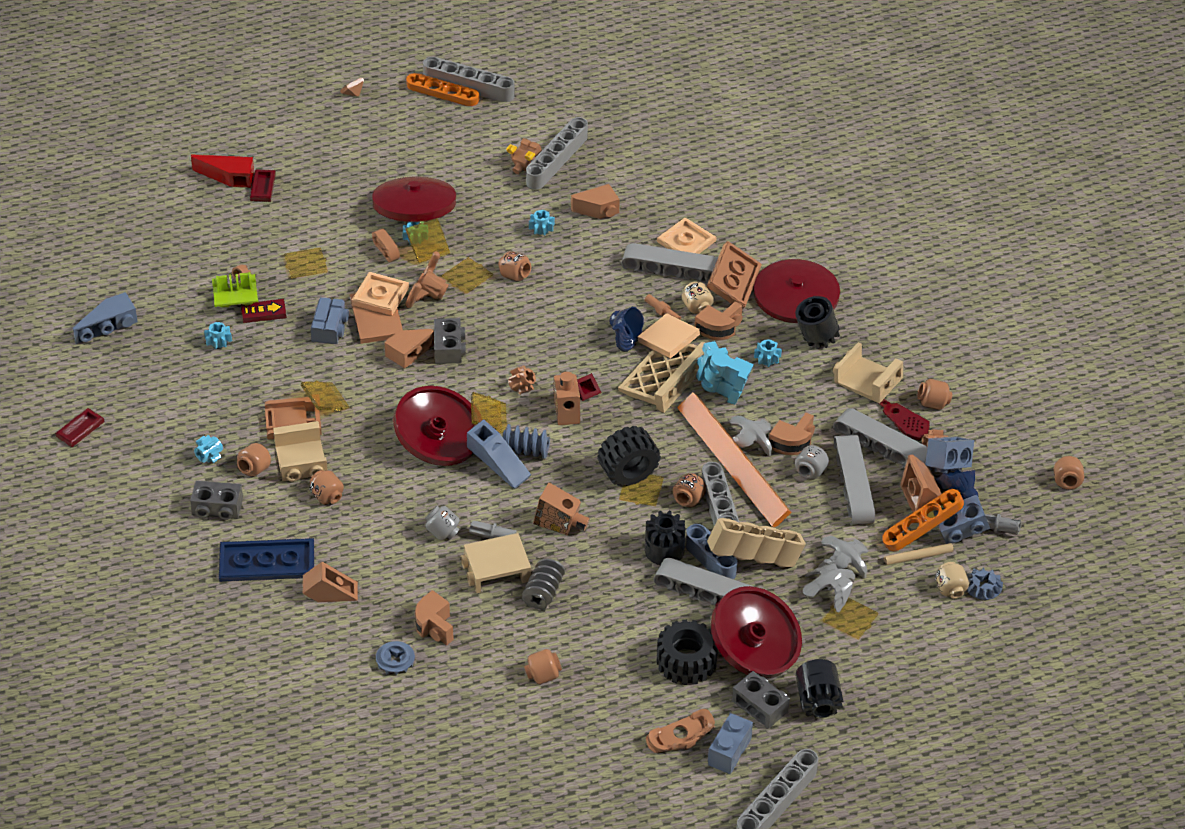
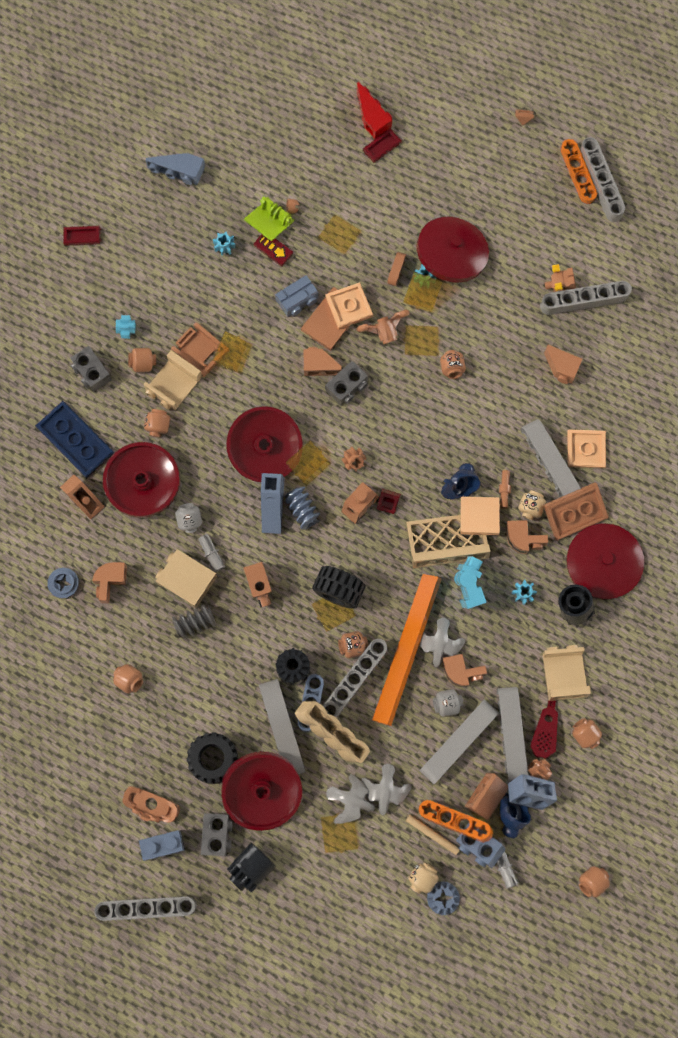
camera: 50 degrees right, 30 degrees up
(367, 530) = (141, 479): none -> dark red dish
(541, 222) = (506, 348): medium azure gear -> none

